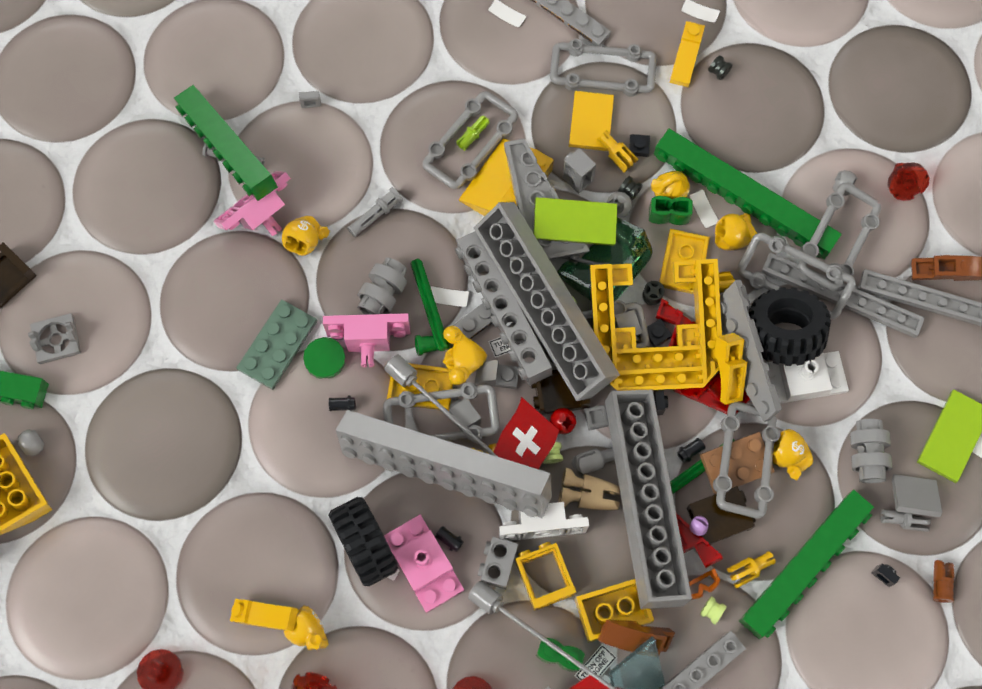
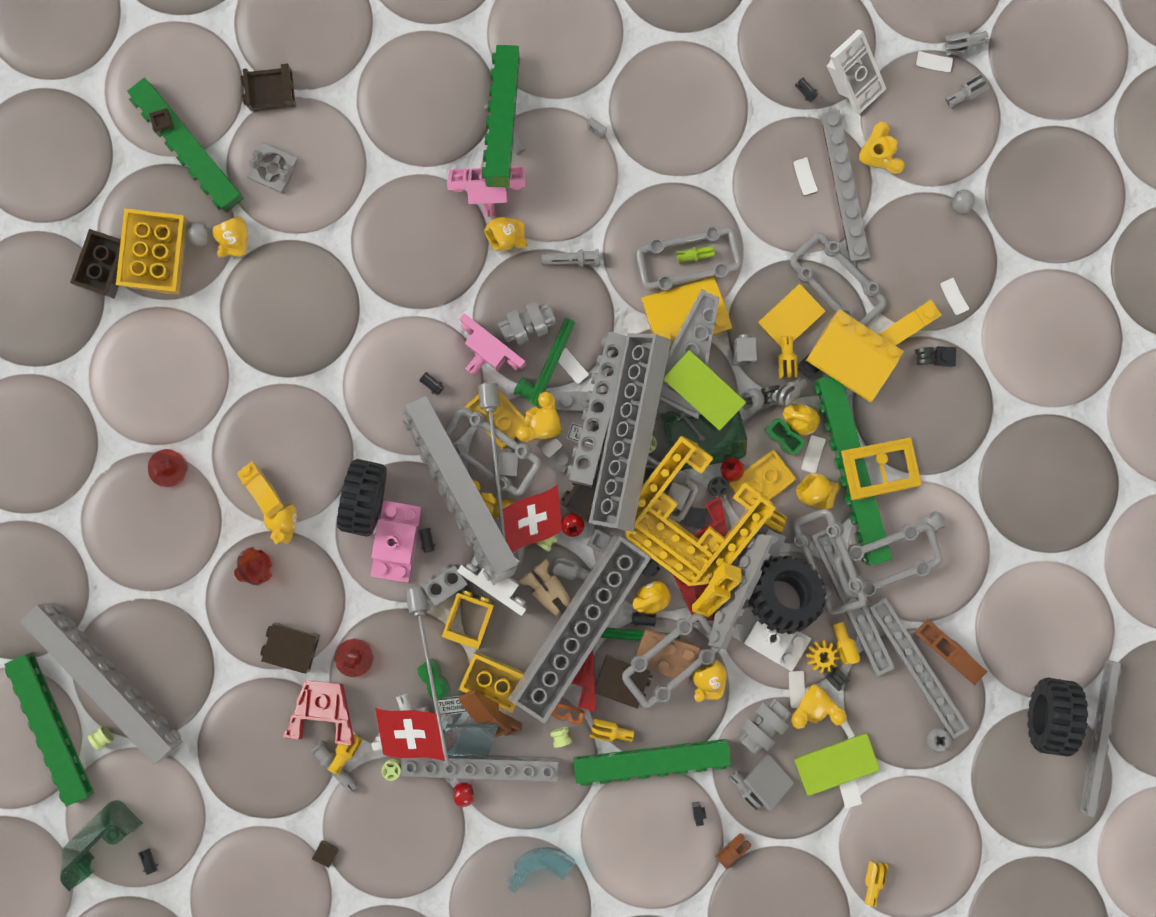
camera: 40 degrees right, 15 degrees up
(64, 421) = (232, 237): none -> yellow piece
(277, 344) = (422, 301): sand green plate -> none
(324, 358) = (447, 339): green tile -> none
(642, 173) = (789, 392): none -> light grey arm
(652, 269) = (729, 474): none -> red piece
(667, 105) = (854, 355): none -> yellow slope
(682, 424) = (652, 597): none -> yellow piece
(699, 525) = (595, 677): lavender hinge -> none
(736, 57) = (945, 356): none -> black plate
(754, 159) = (881, 458): none -> yellow door
(864, 351) = (829, 653): none -> yellow gear
(865, 402) = (796, 687): none -> white sticker
(870, 333) = (845, 645): none -> yellow arm
(889, 364) = (837, 679): none -> pearl dark grey wheel
(894, 401) = (815, 707): none -> yellow head
(907, 180) = (980, 560): clear red tile -> none

